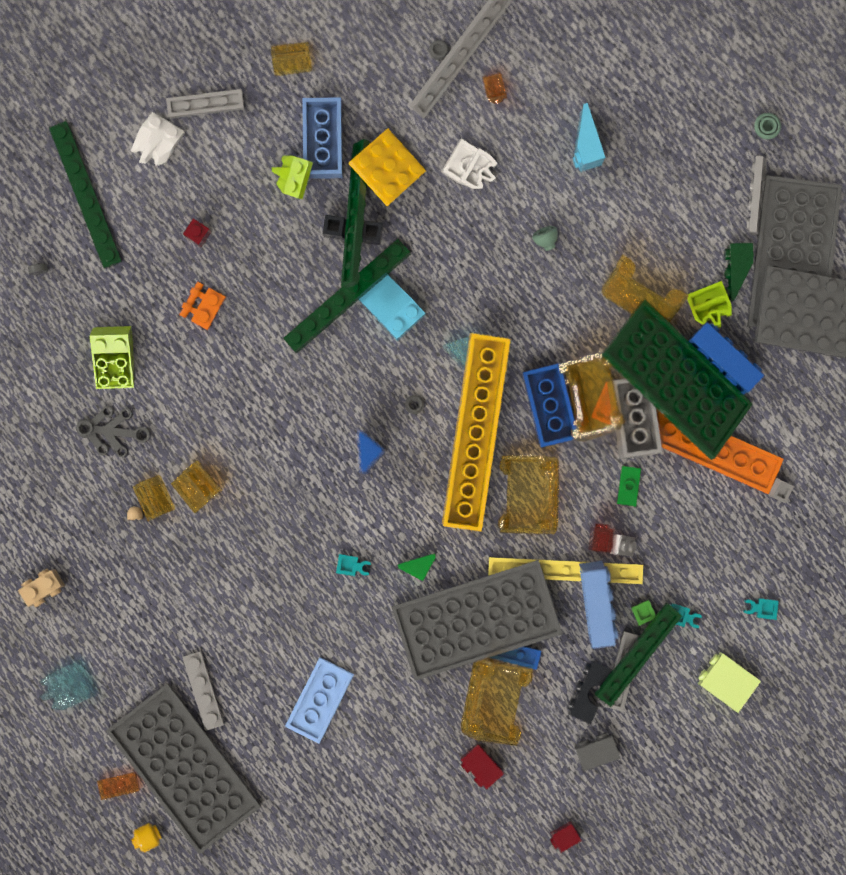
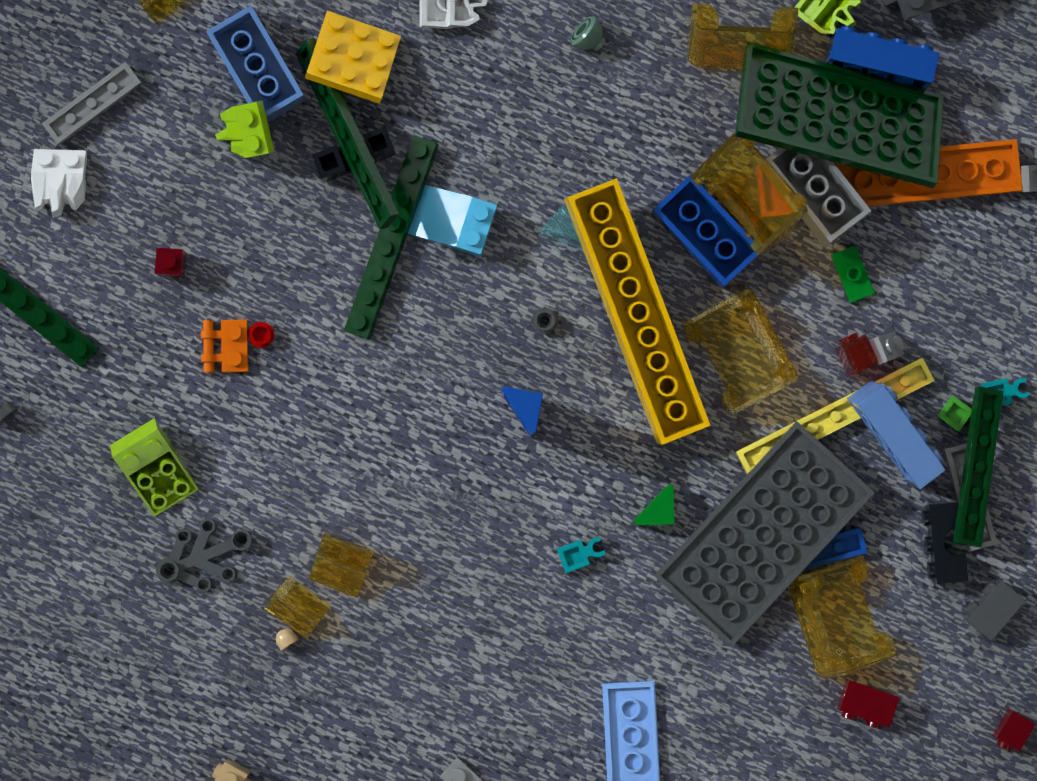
camera: 30 degrees left, 0 degrees up
(229, 311) = (261, 334): none -> red plate

